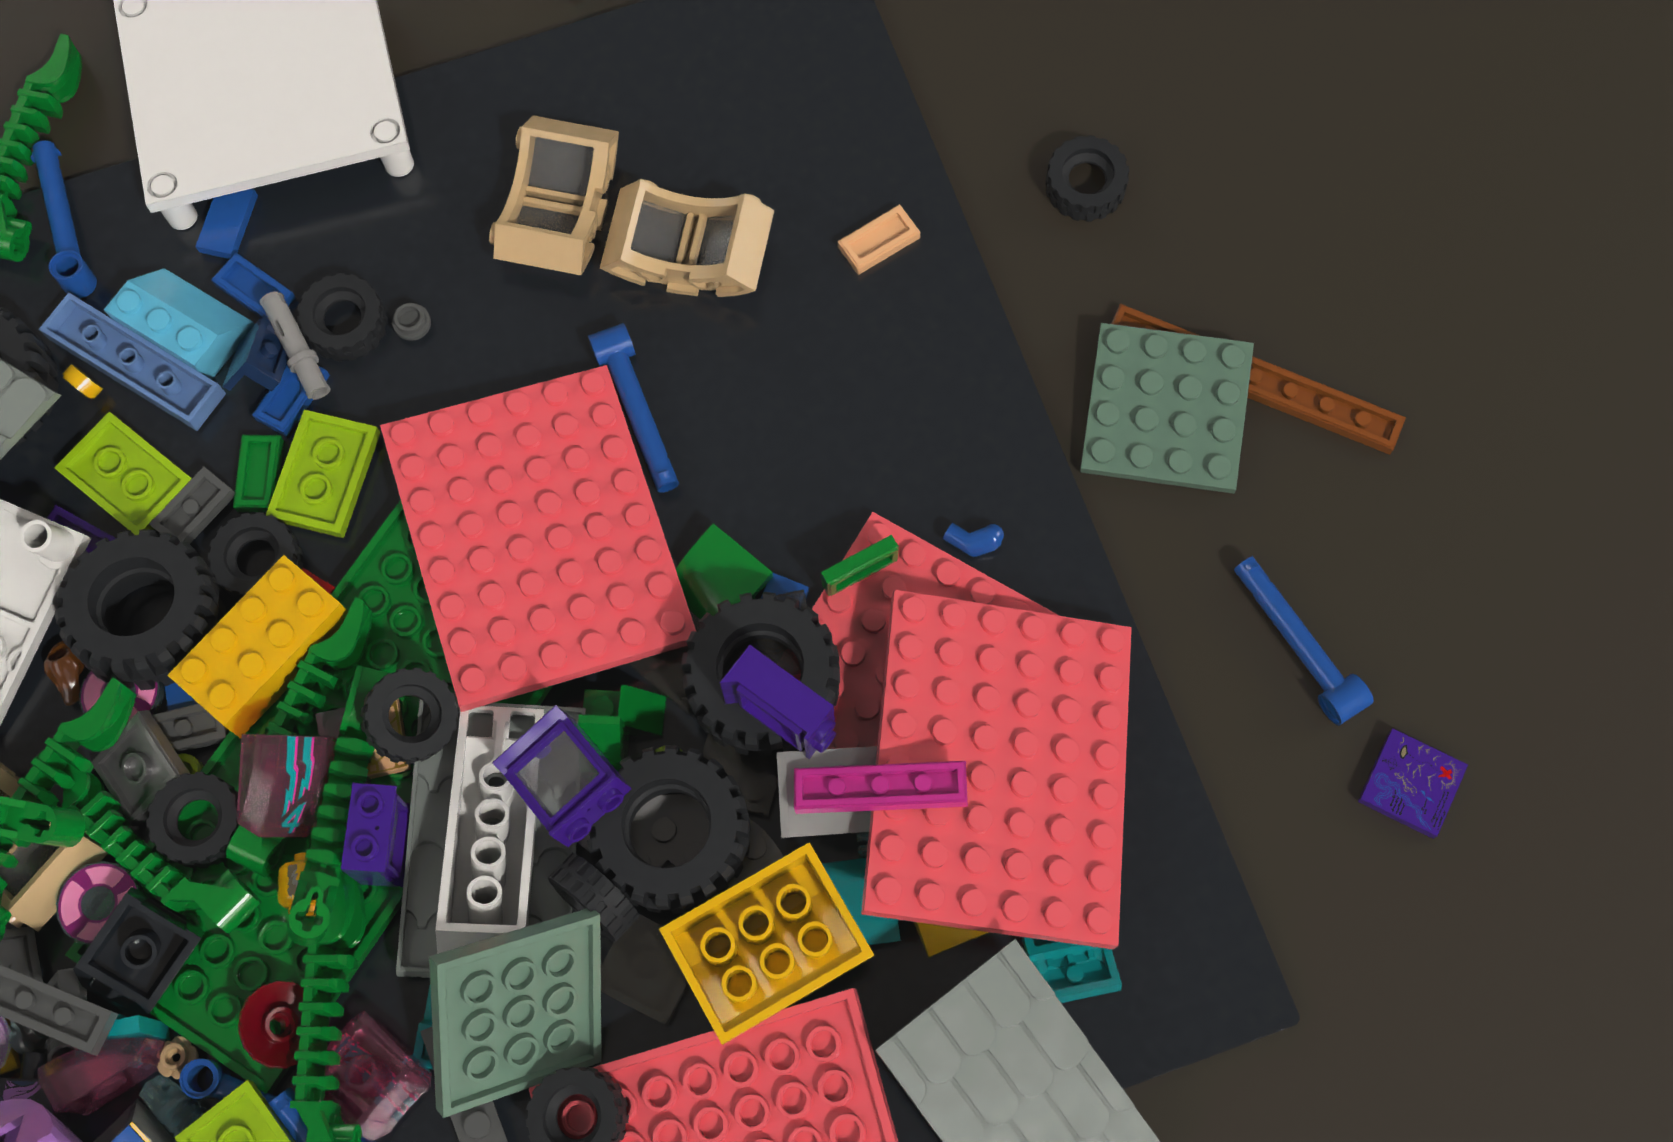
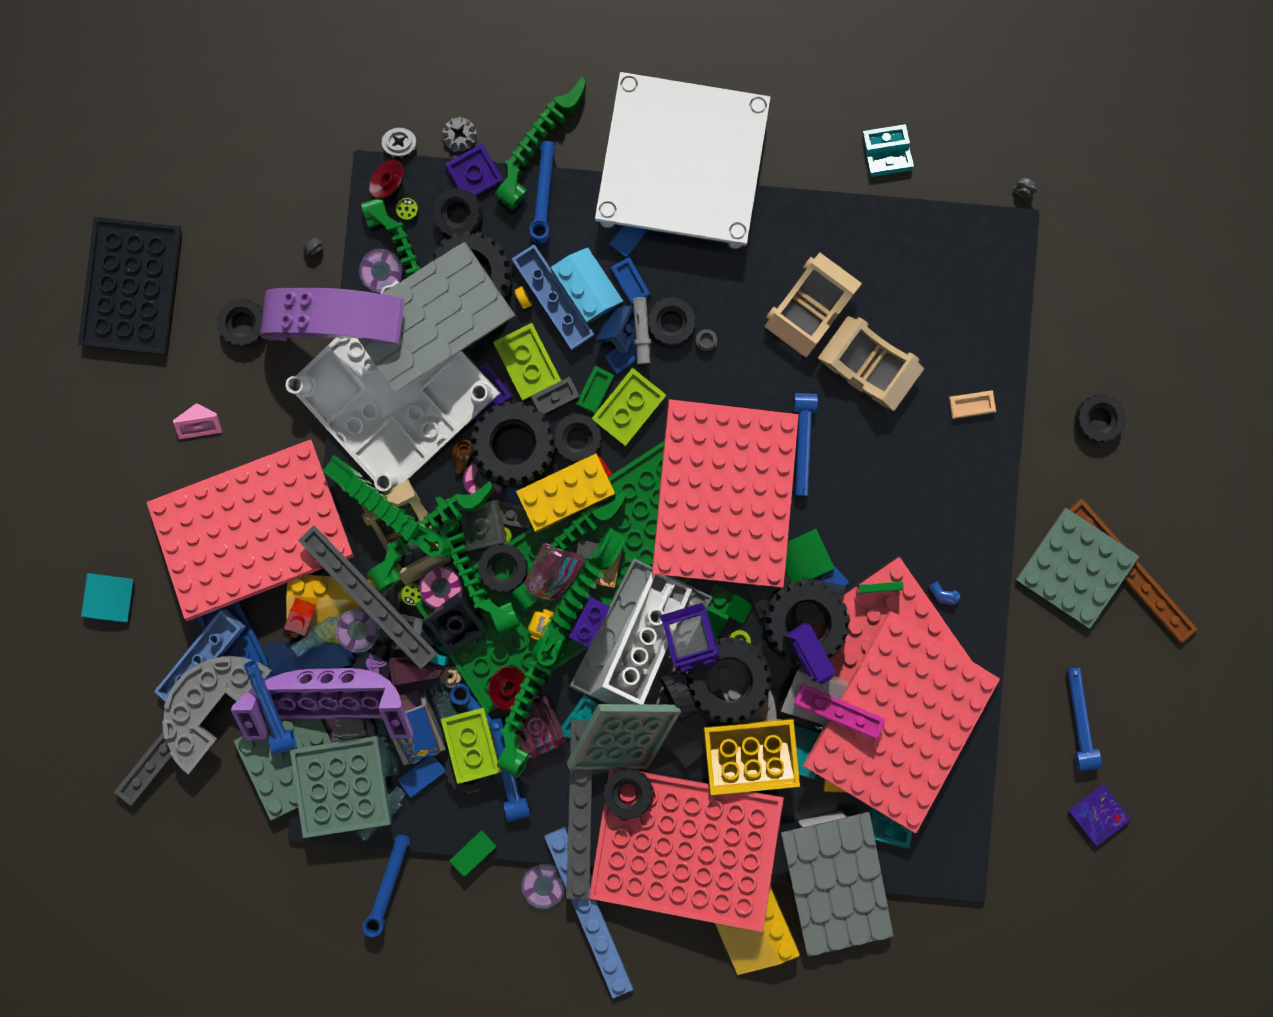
camera: 20 degrees right, 15 degrees up
(52, 944) = (410, 594): none -> lime tile
(409, 683) = (611, 564): black tyre -> none

